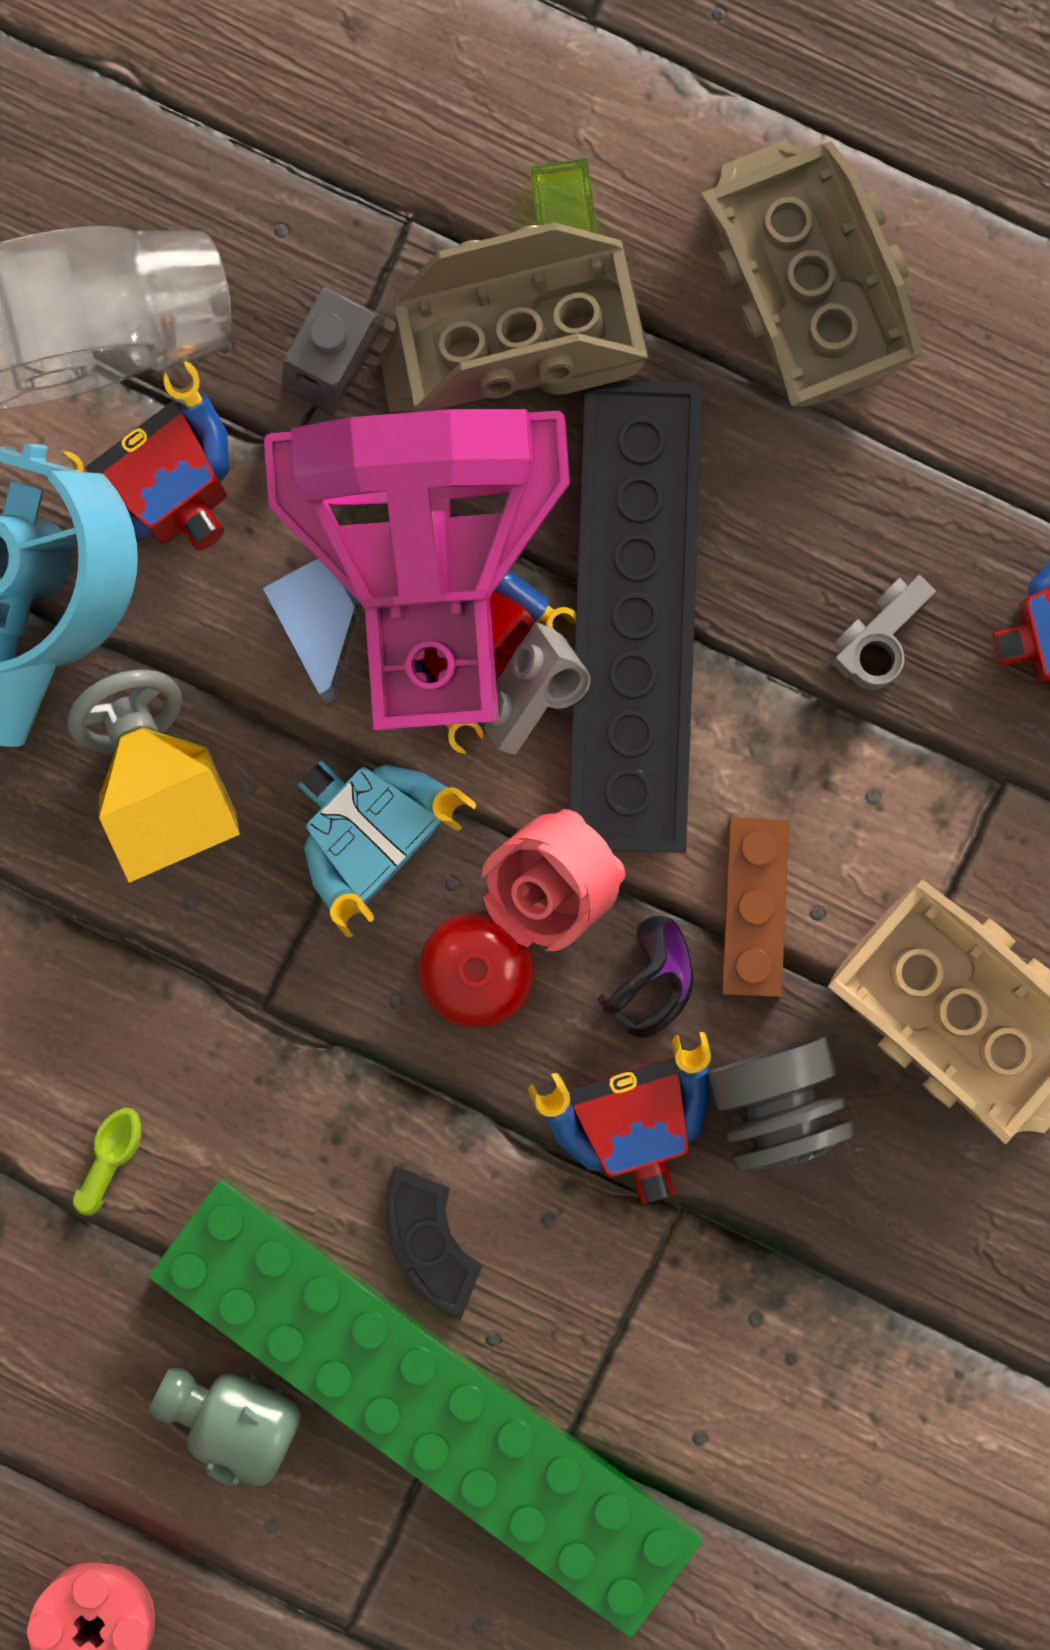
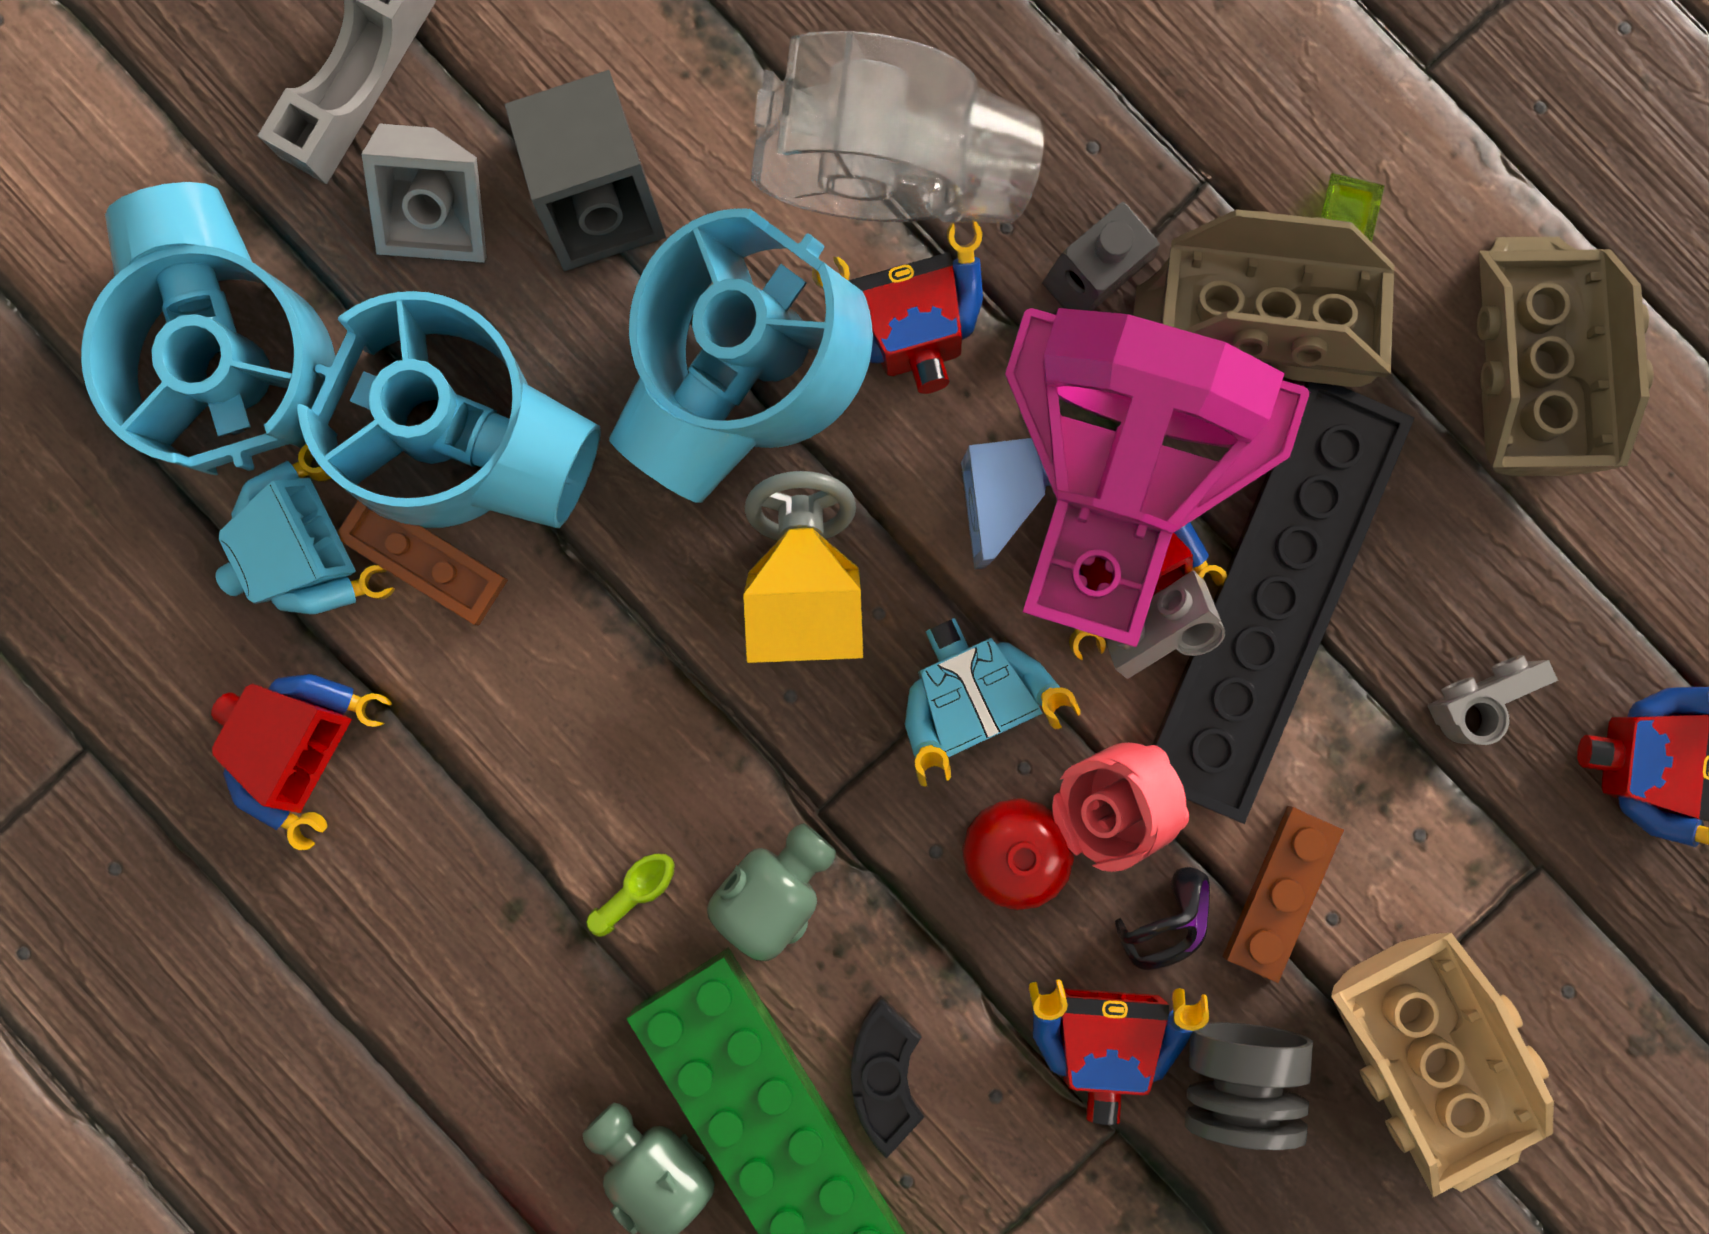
camera: 15 degrees right, 0 degrees up
(241, 1106) = (769, 895): none -> sand green piece

